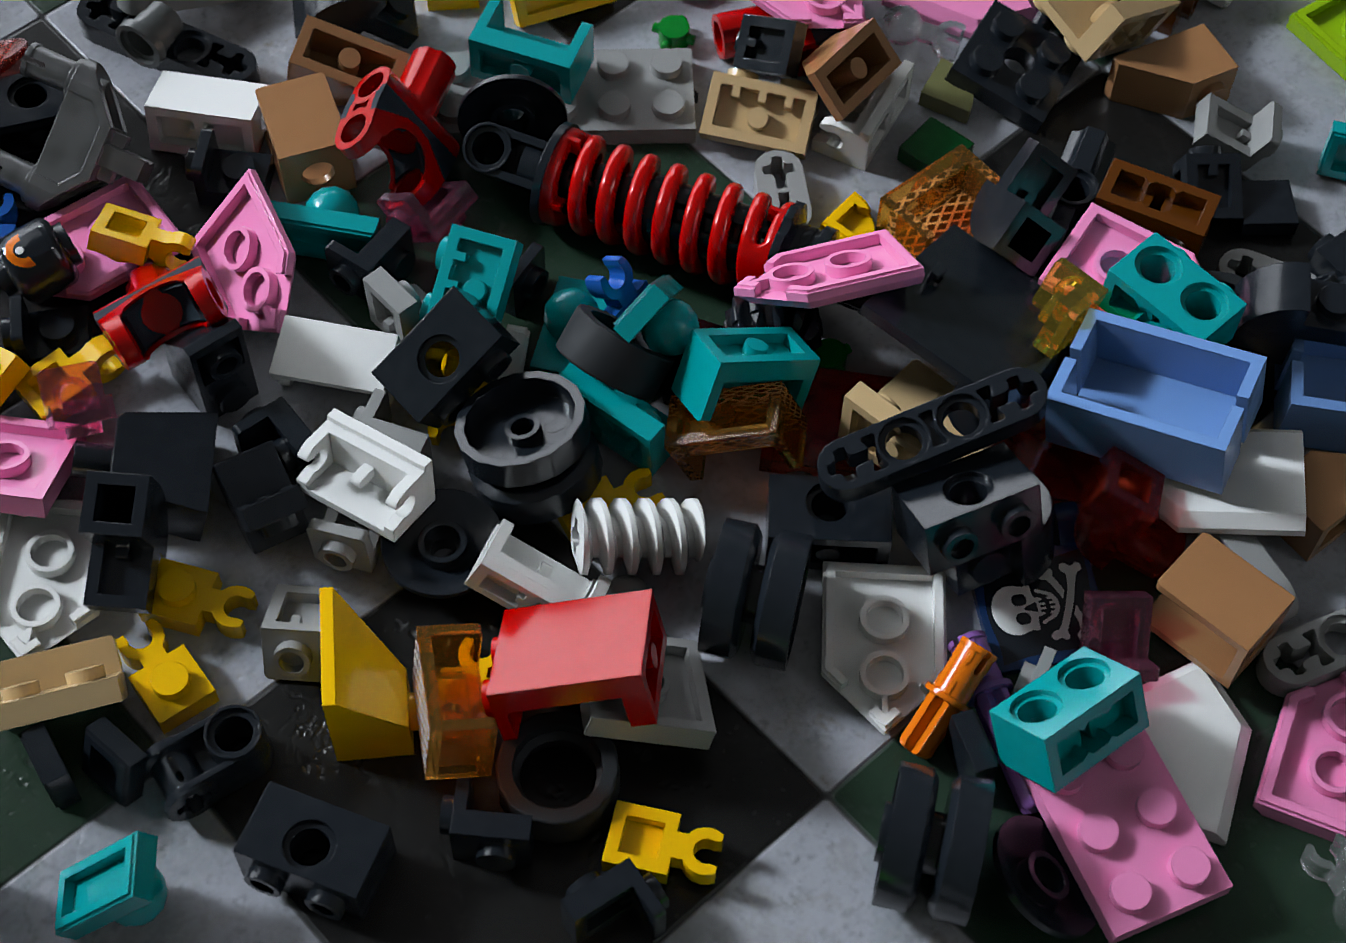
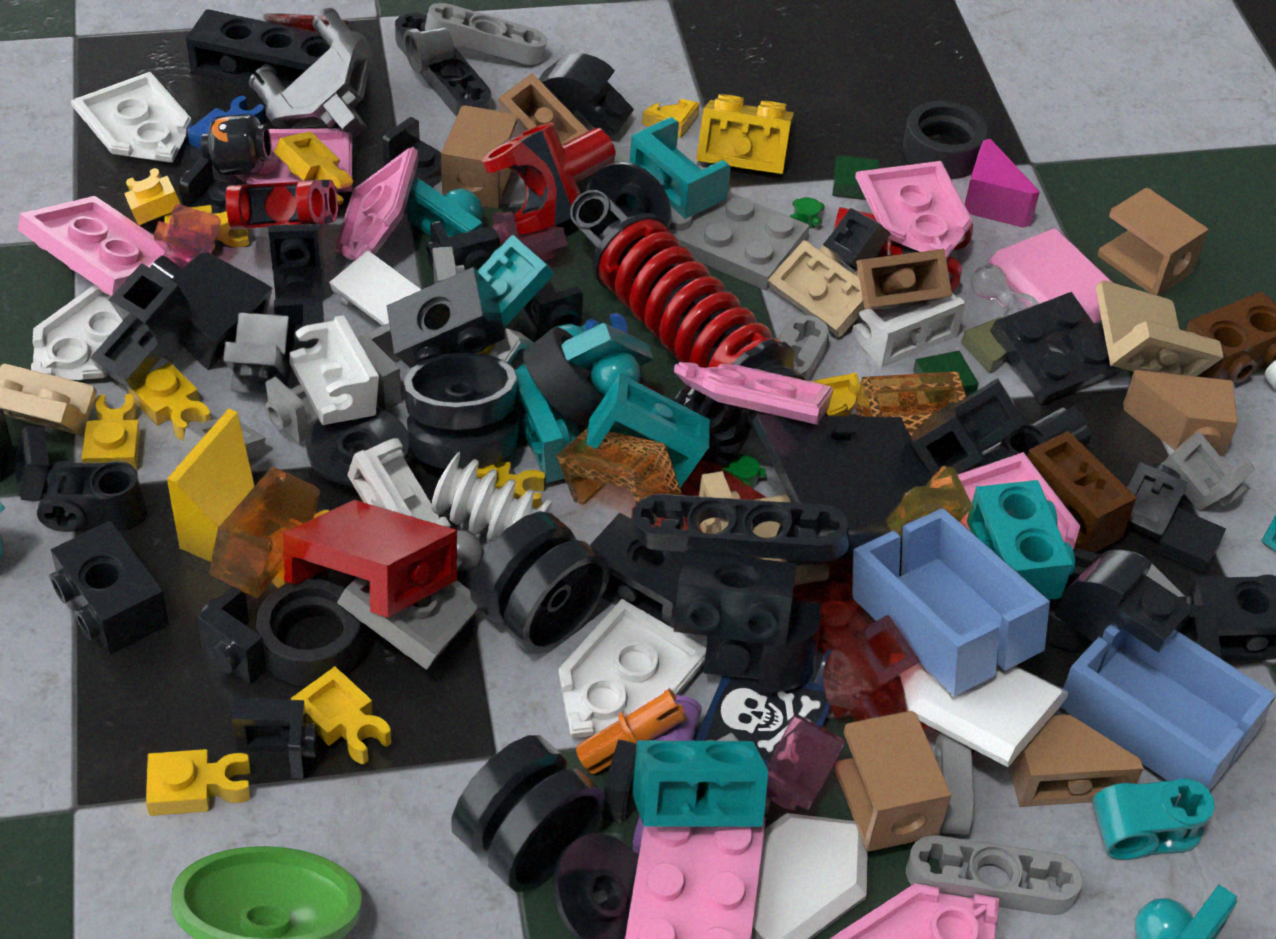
camera: 30 degrees right, 10 degrees down
(189, 102) = (424, 101): white hinge -> none

